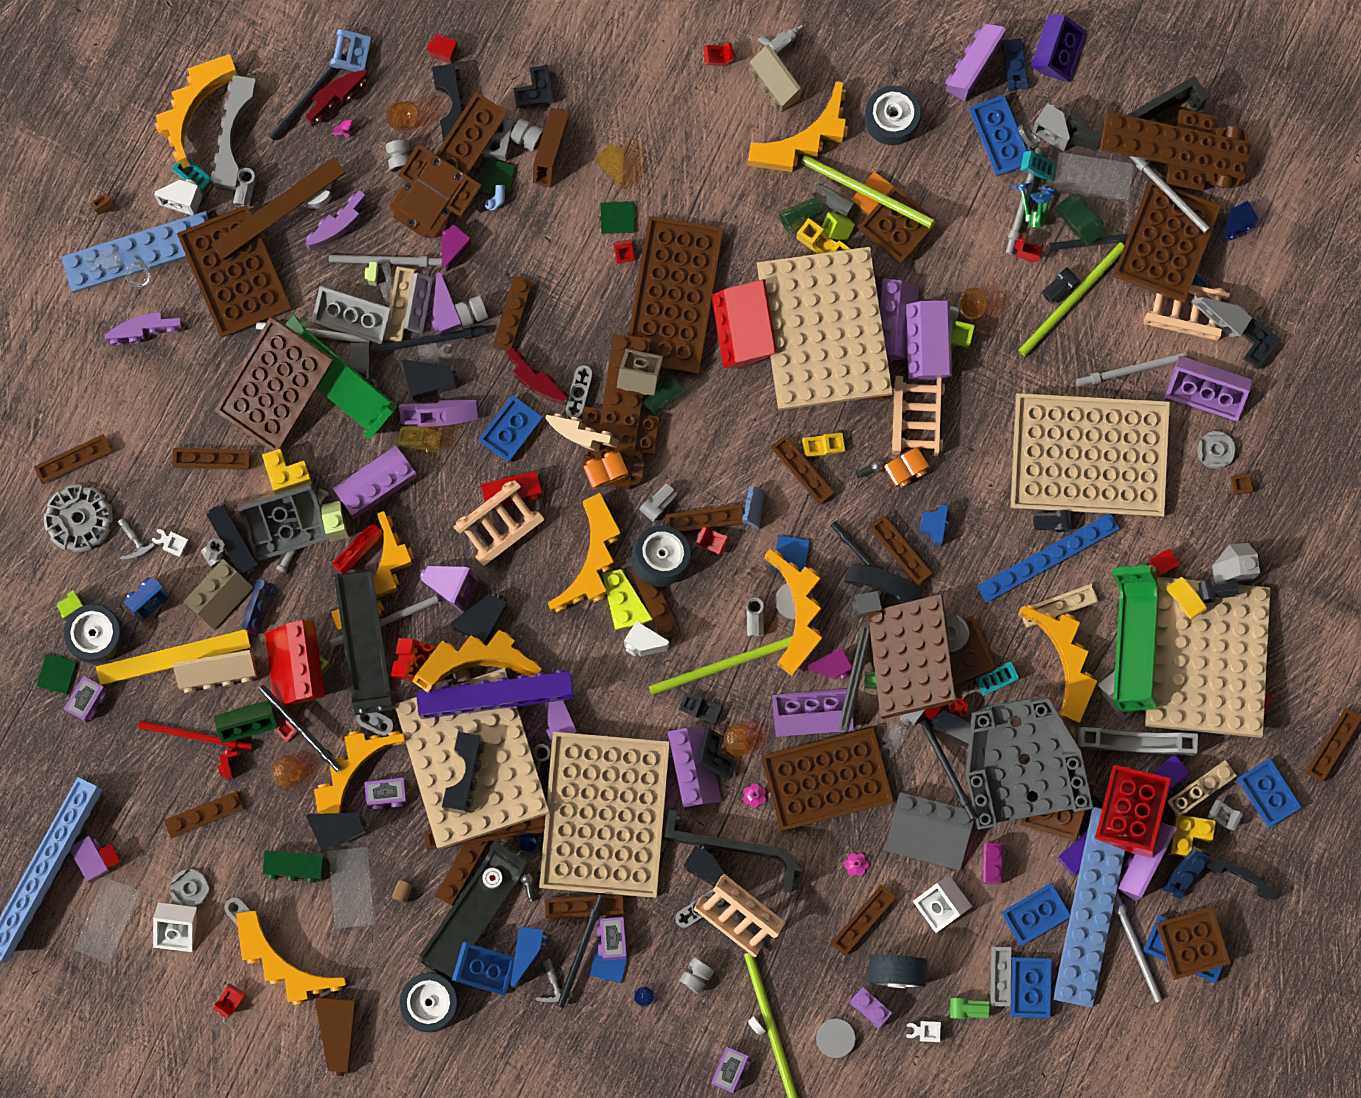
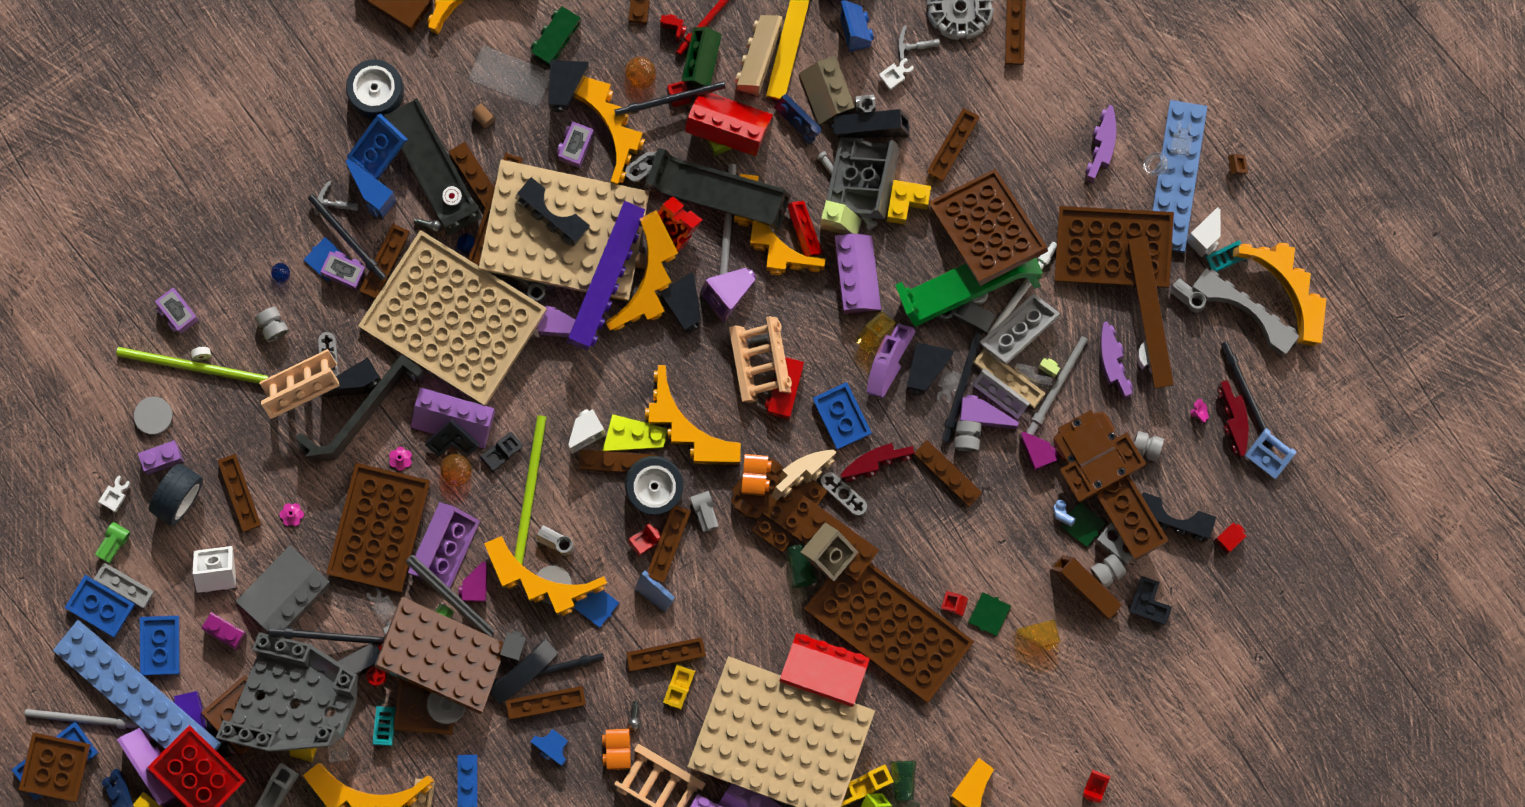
camera: 115 degrees right, 0 degrees up
(402, 115) = (1184, 467): clear orange hair -> none

